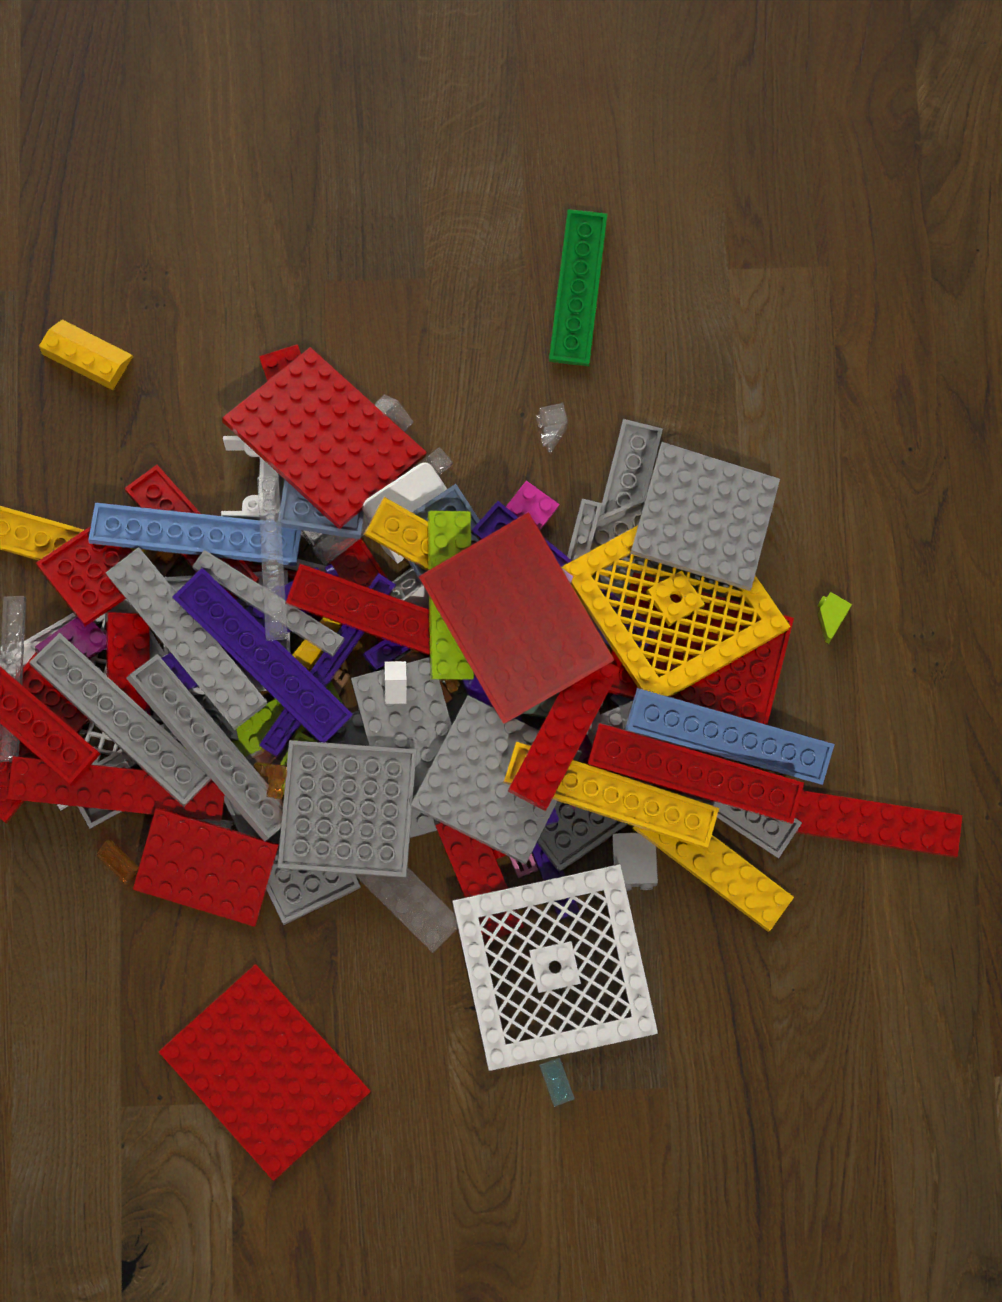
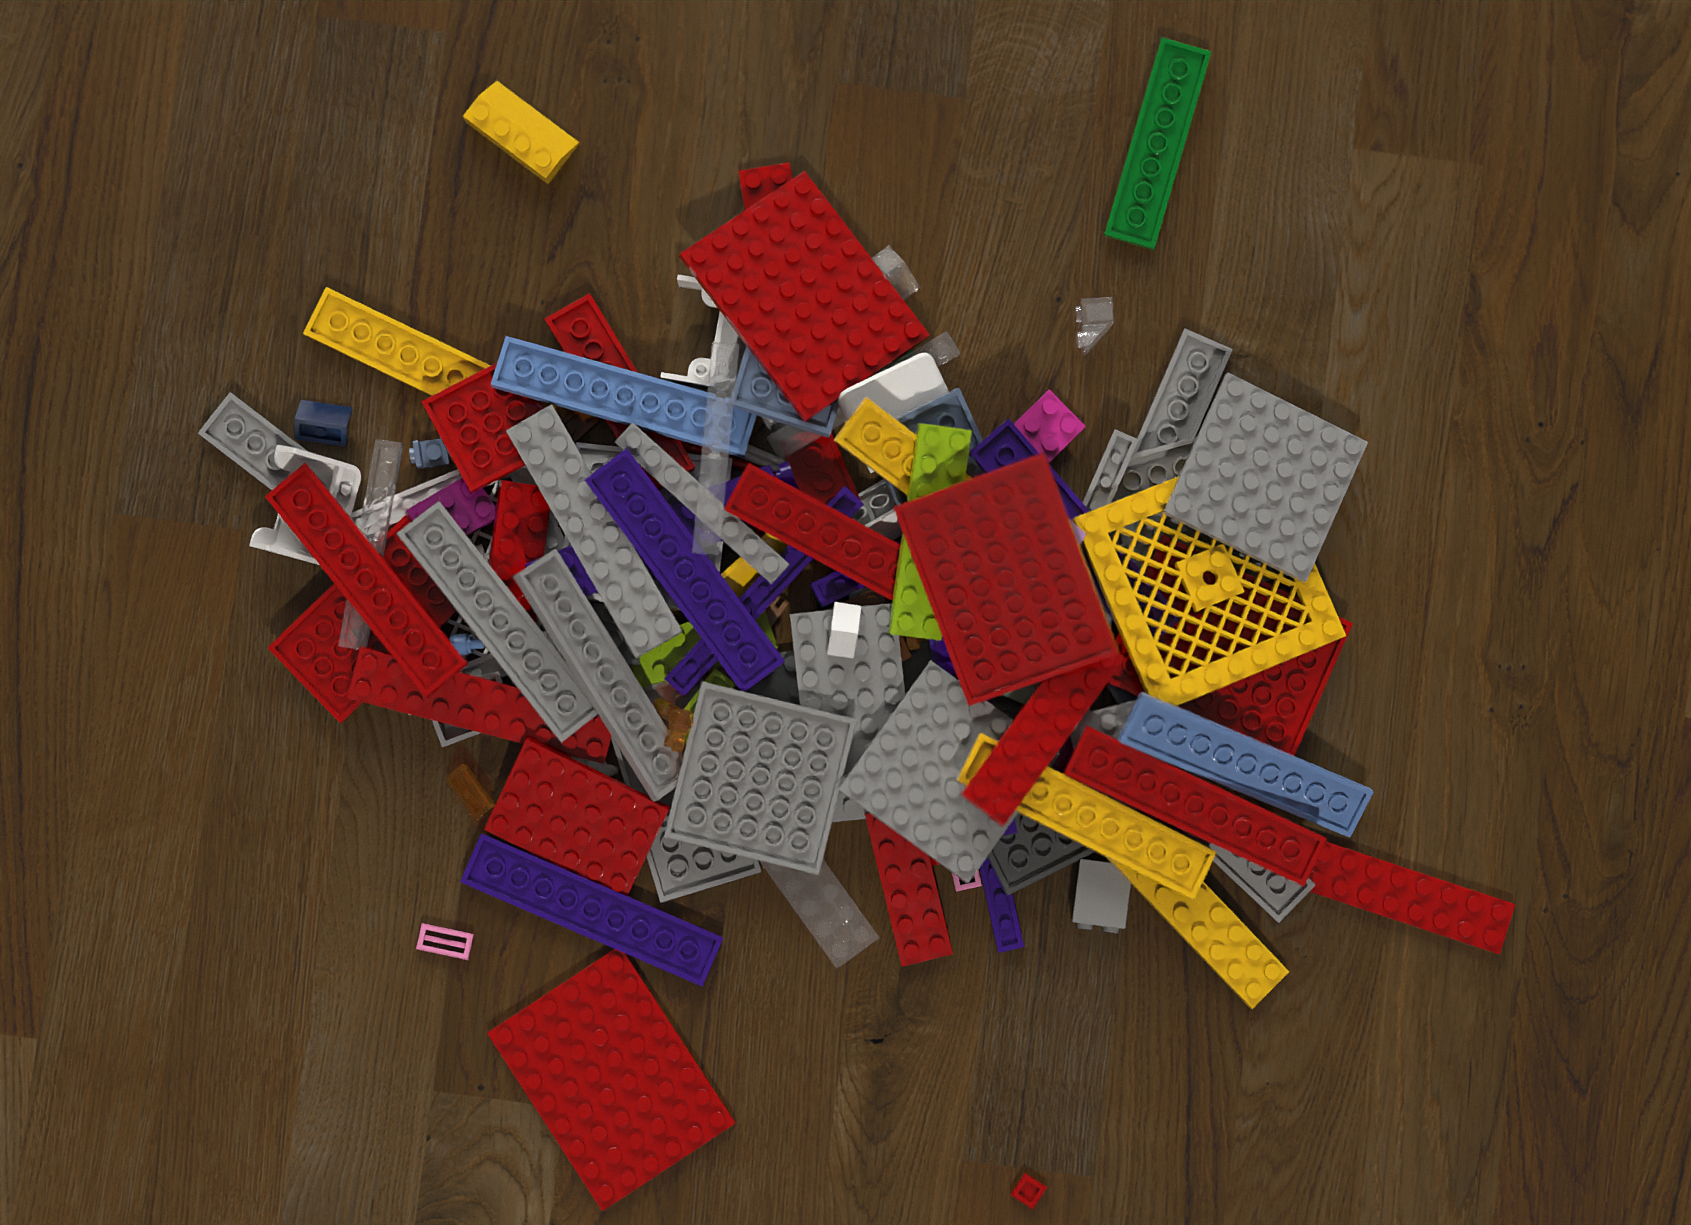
camera: 10 degrees right, 10 degrees up
(48, 606) = (429, 454): none -> sand blue bracket
(100, 744) = (465, 643): none -> medium blue cylinder
(132, 985) = (467, 945): none -> bright pink tile
(229, 939) = (591, 909): none -> dark purple plate
(505, 1055) = (999, 1101): white plate -> none
(557, 1082) = (961, 1150): clear light blue plate -> none
(616, 1107) = (1028, 1190): none -> red tile
(831, 614) = (1401, 625): lime slope -> none

